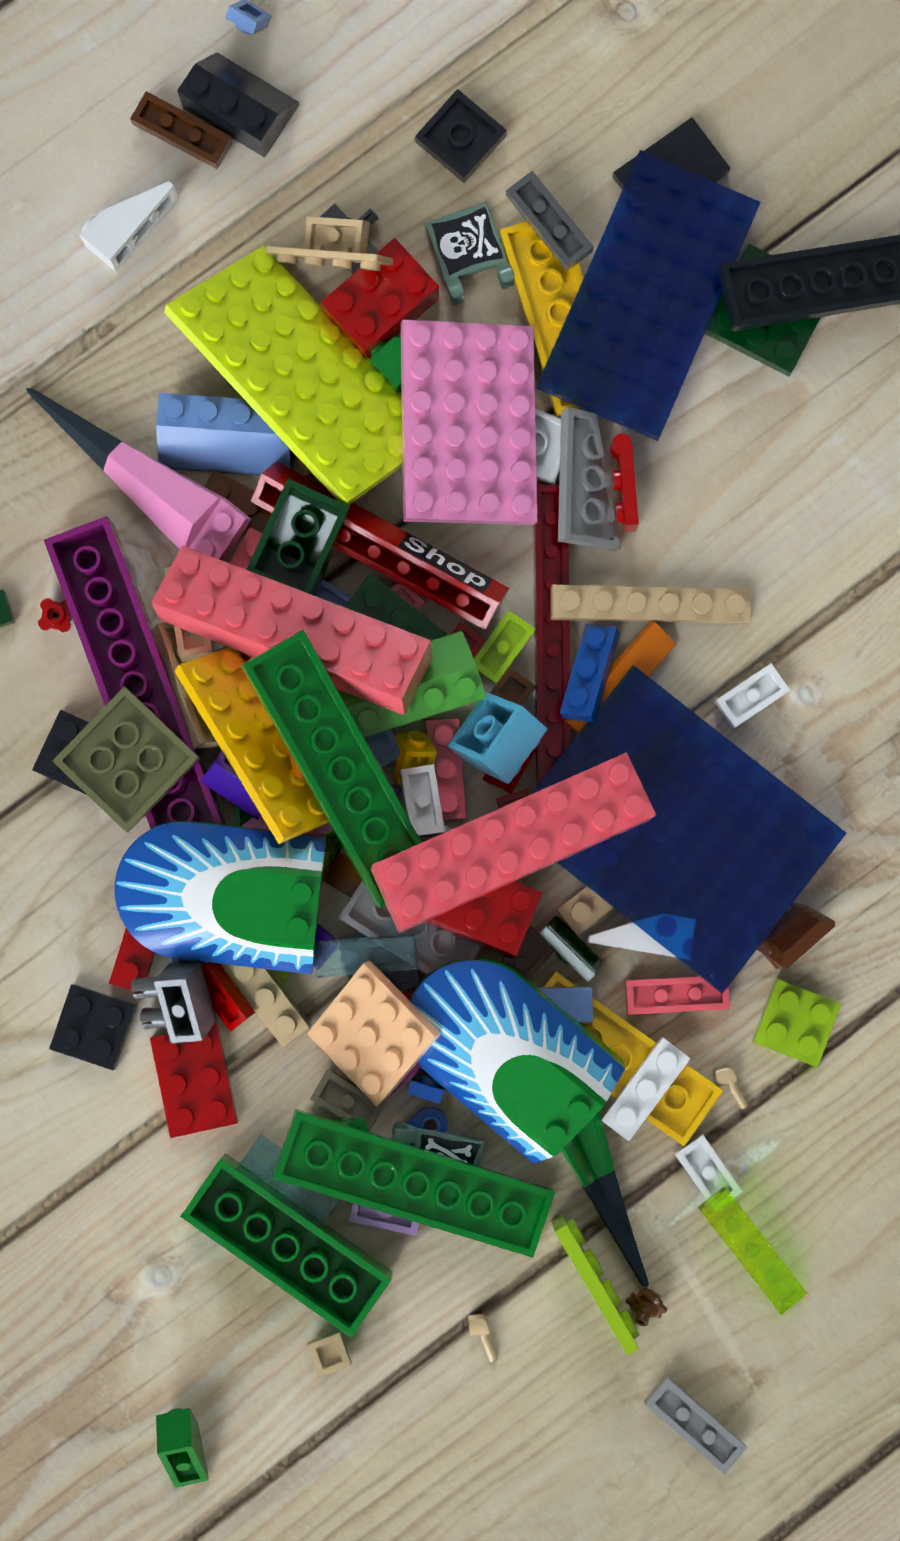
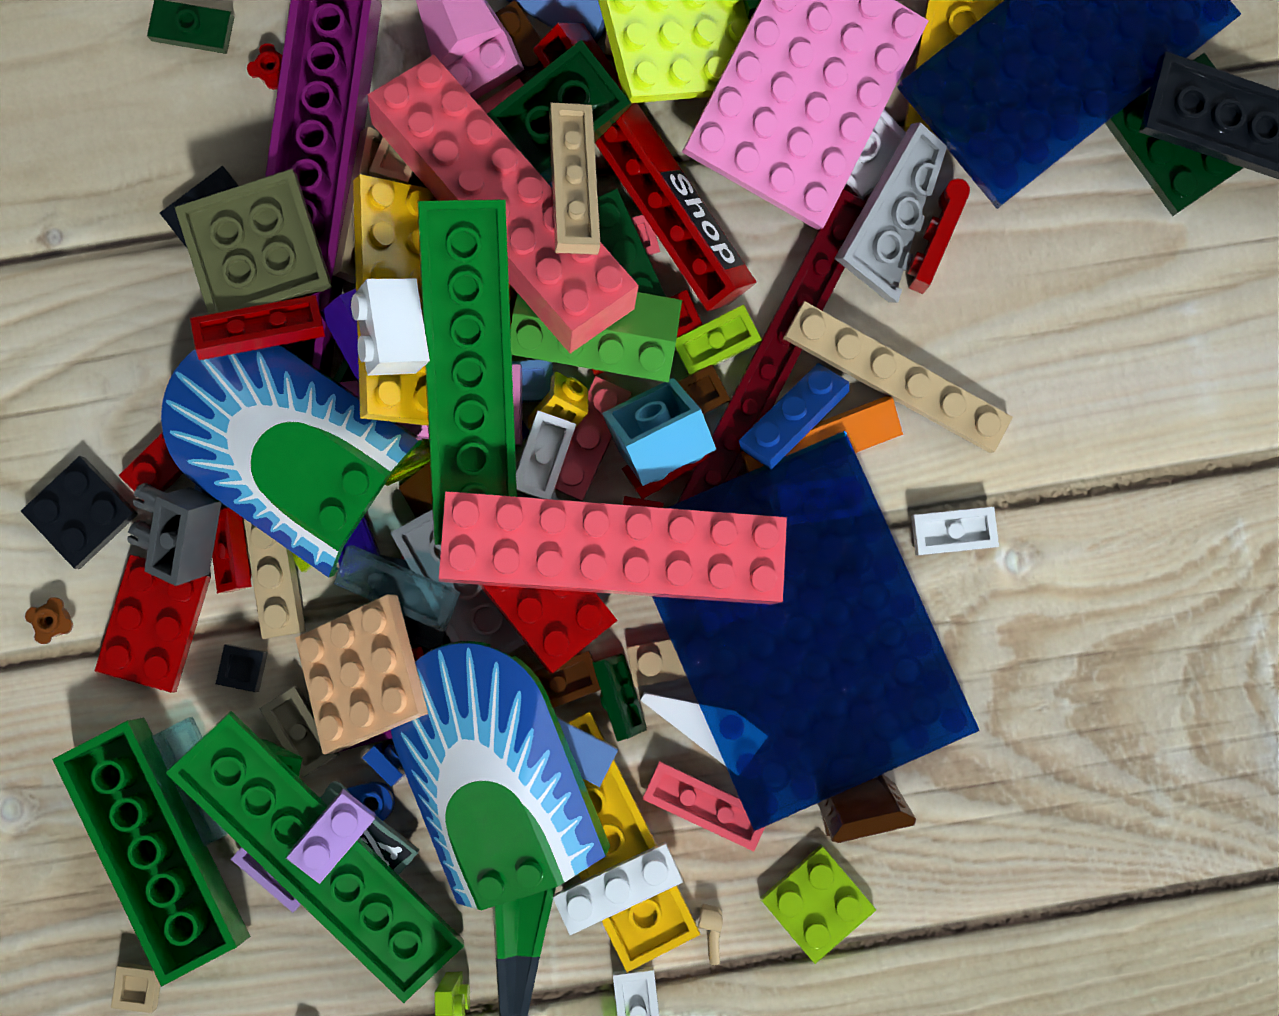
camera: 30 degrees right, 0 degrees up
(124, 1116) = (60, 623): none -> dark orange plate
(163, 817) = (257, 327): none -> red plate
(267, 765) = (390, 326): none -> white brick
(279, 1077) = (241, 668): none -> black plate
(341, 586) = (574, 179): none -> tan plate
(417, 1161) = (331, 836): none -> lavender plate

